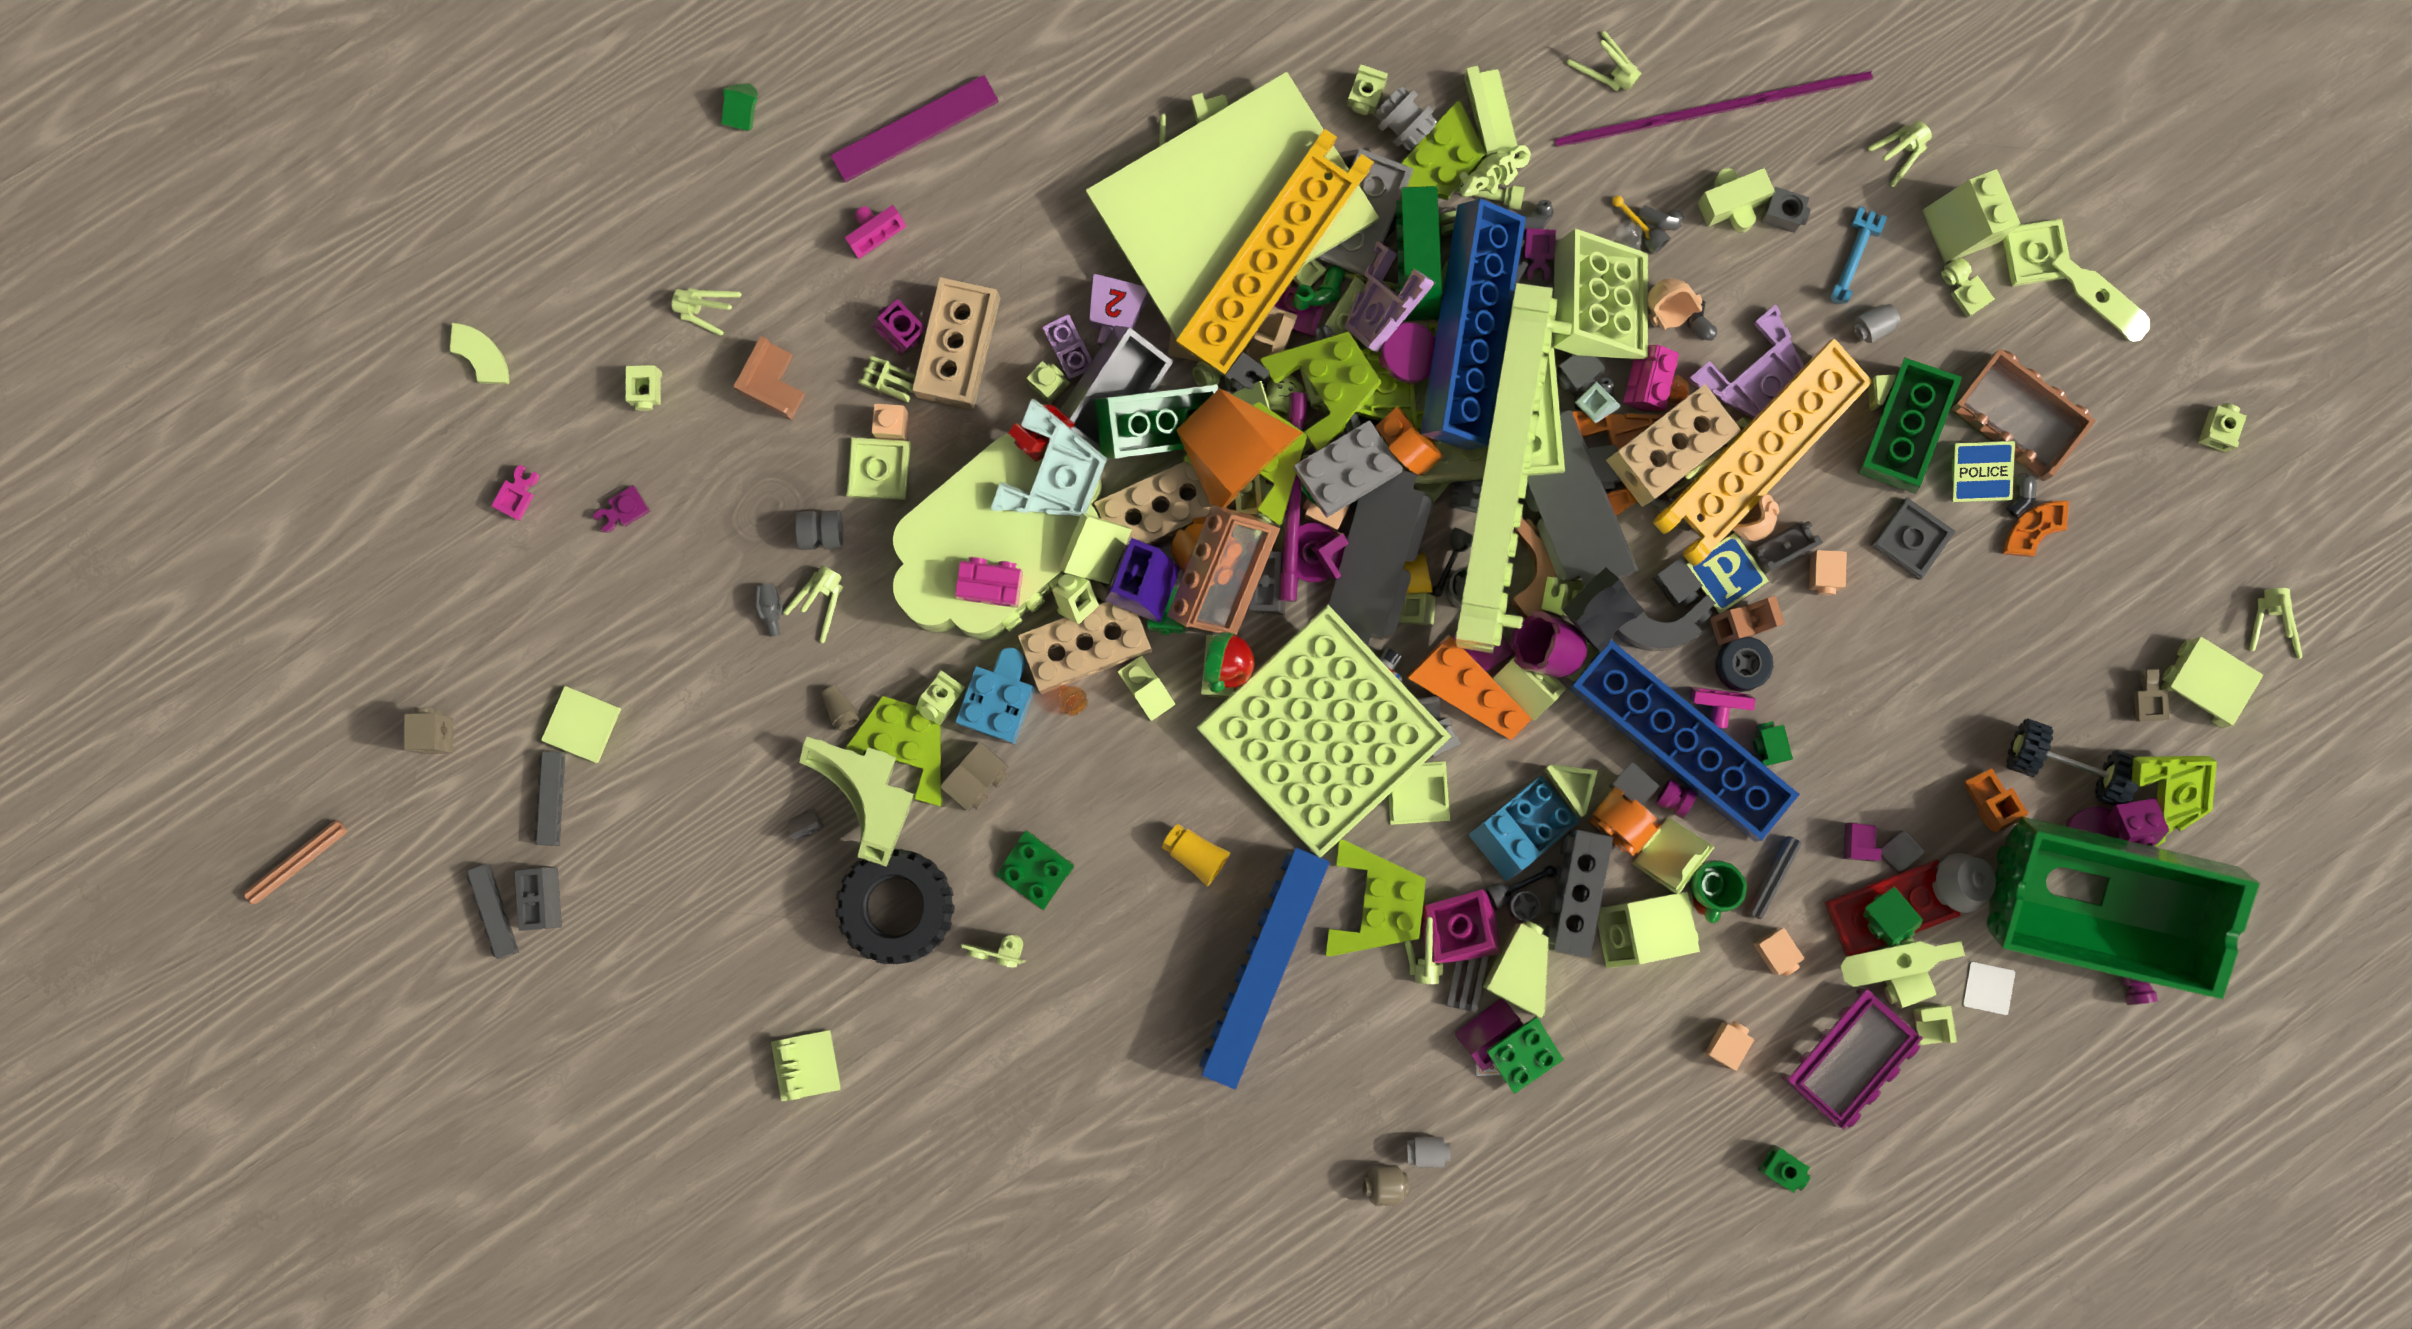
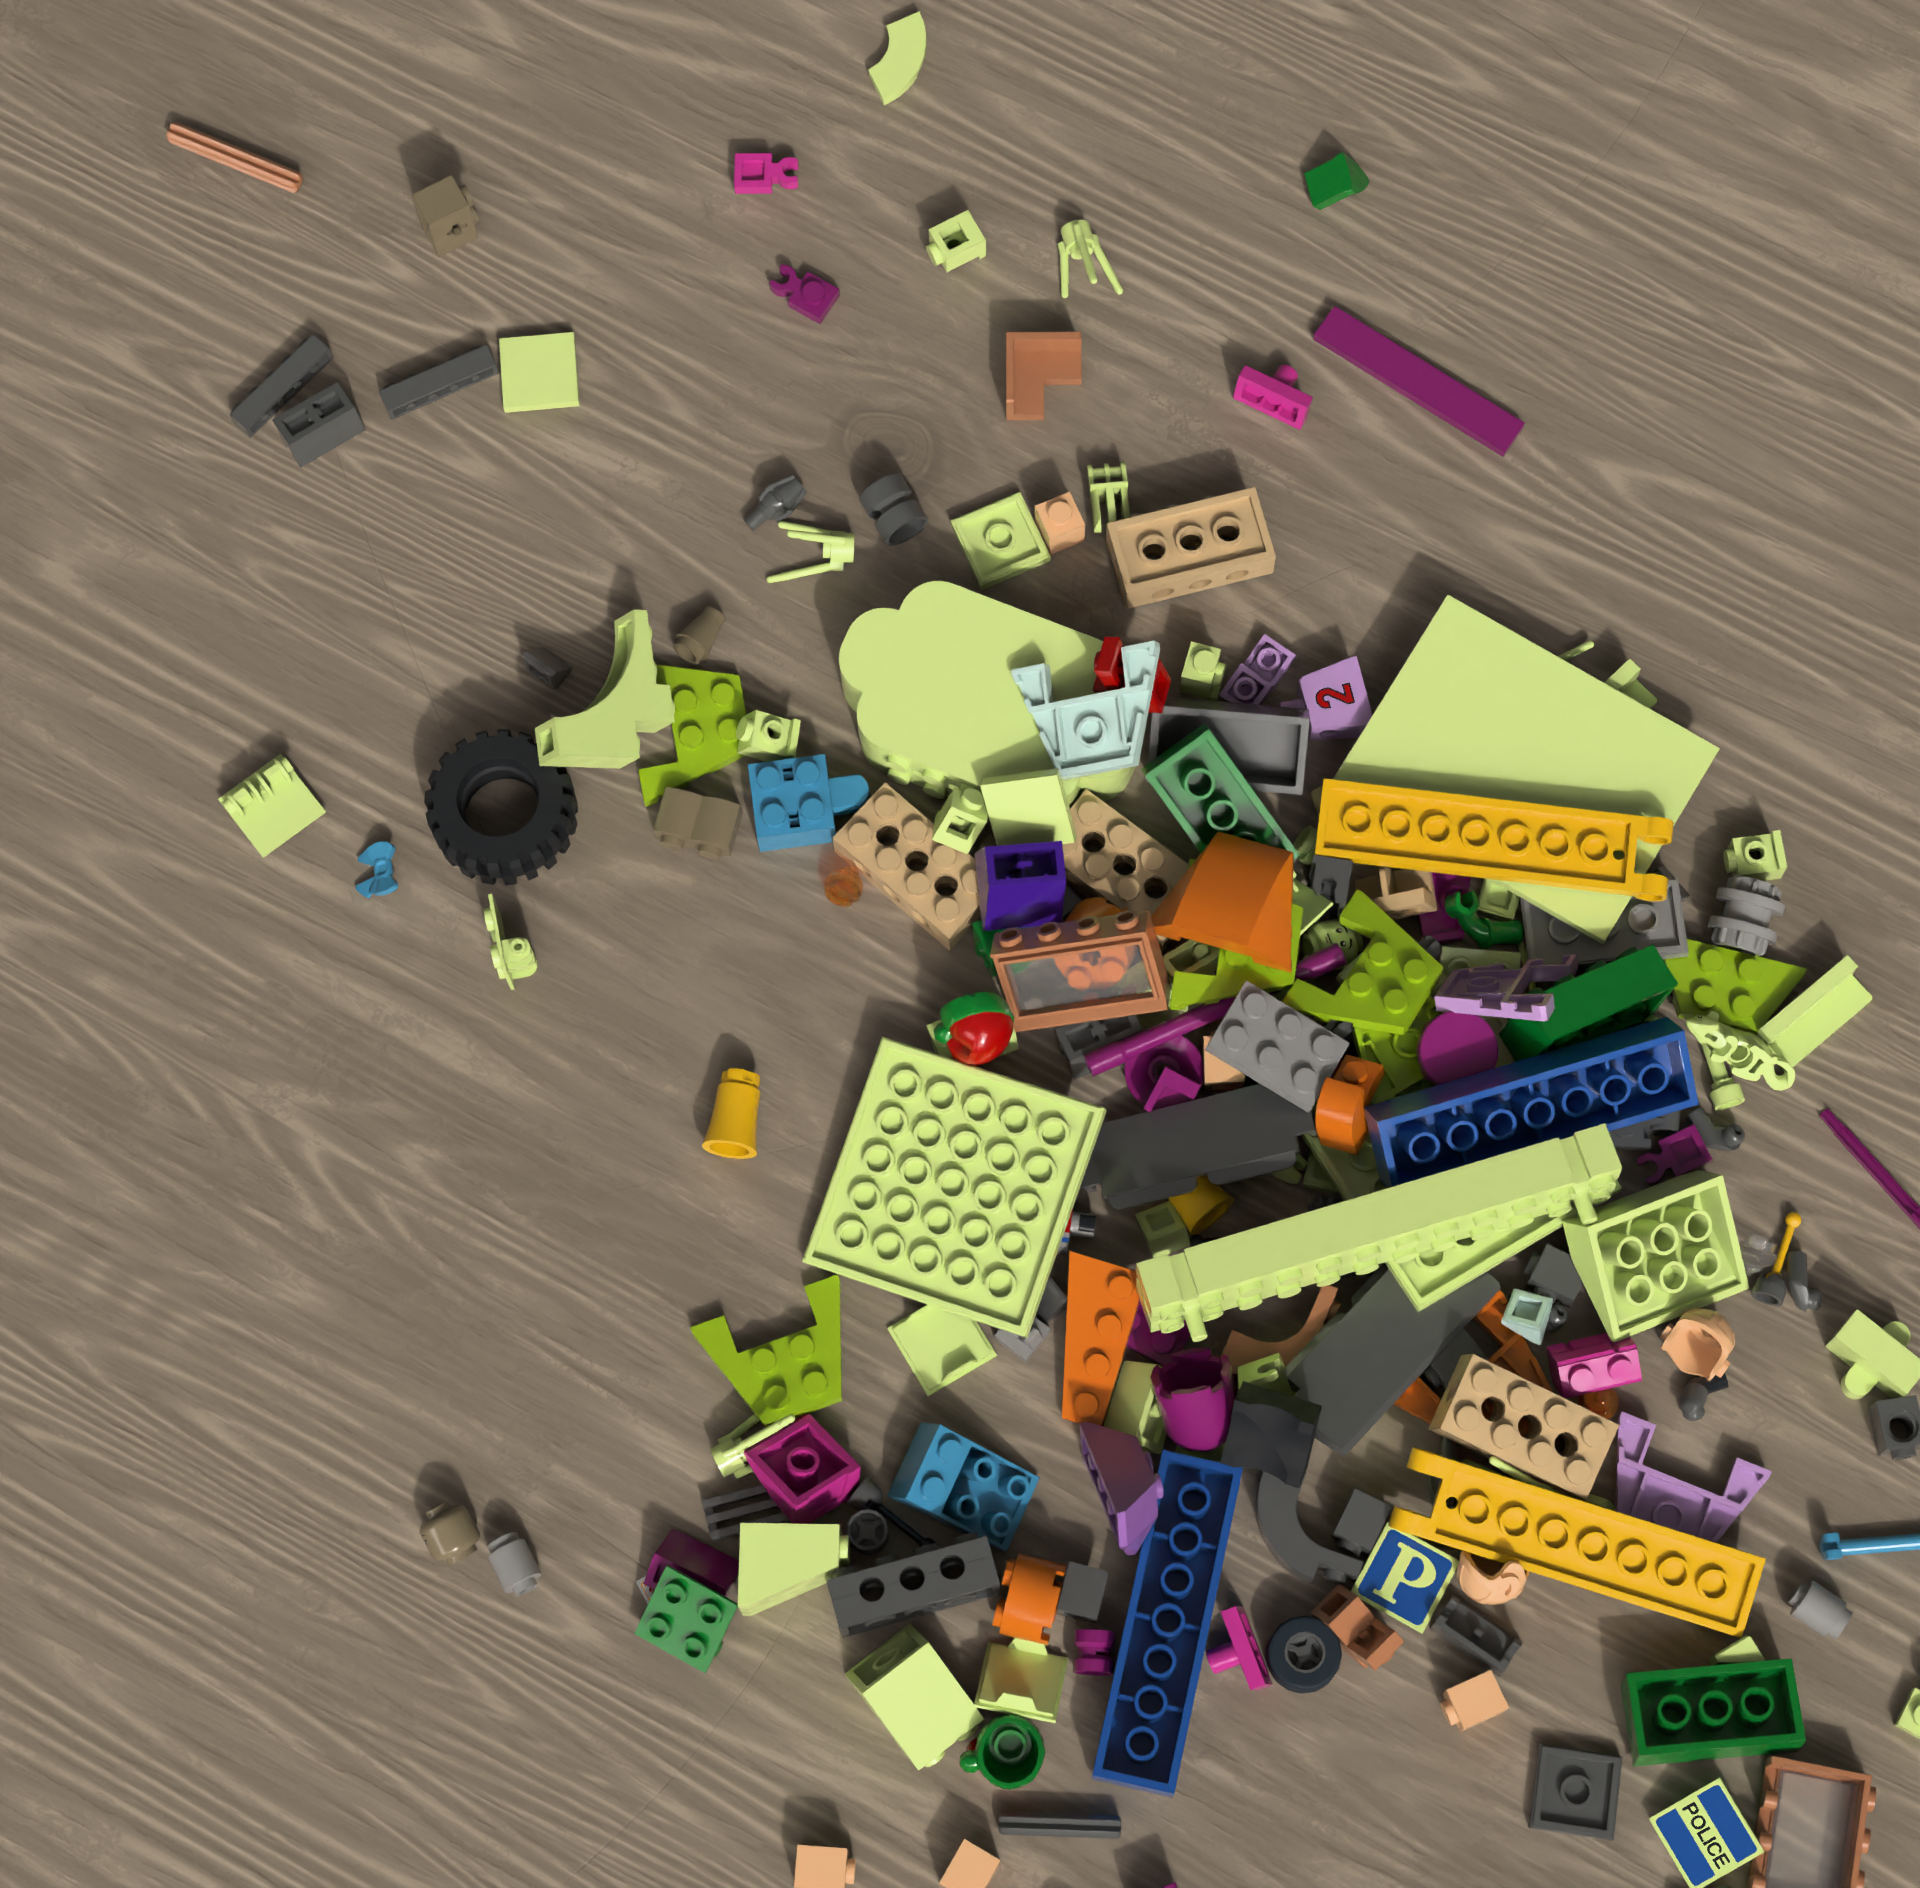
camera: 60 degrees right, 10 degrees down
(884, 1007) = (380, 857): none -> dark azure piece
(900, 317) = (1184, 465): magenta head -> none
(989, 583) = (923, 711): dark pink brick -> none
(1035, 870) = (624, 944): green hinge -> none
(1146, 688) = (902, 964): yellowish green slope -> none
(1265, 968) = (637, 1257): blue brick -> none
(1573, 785) = (1044, 1519): yellowish green slope -> none
(1581, 722) = (1123, 1482): none -> medium lavender wedge
(1772, 744) = (1221, 1737): green brick -> none

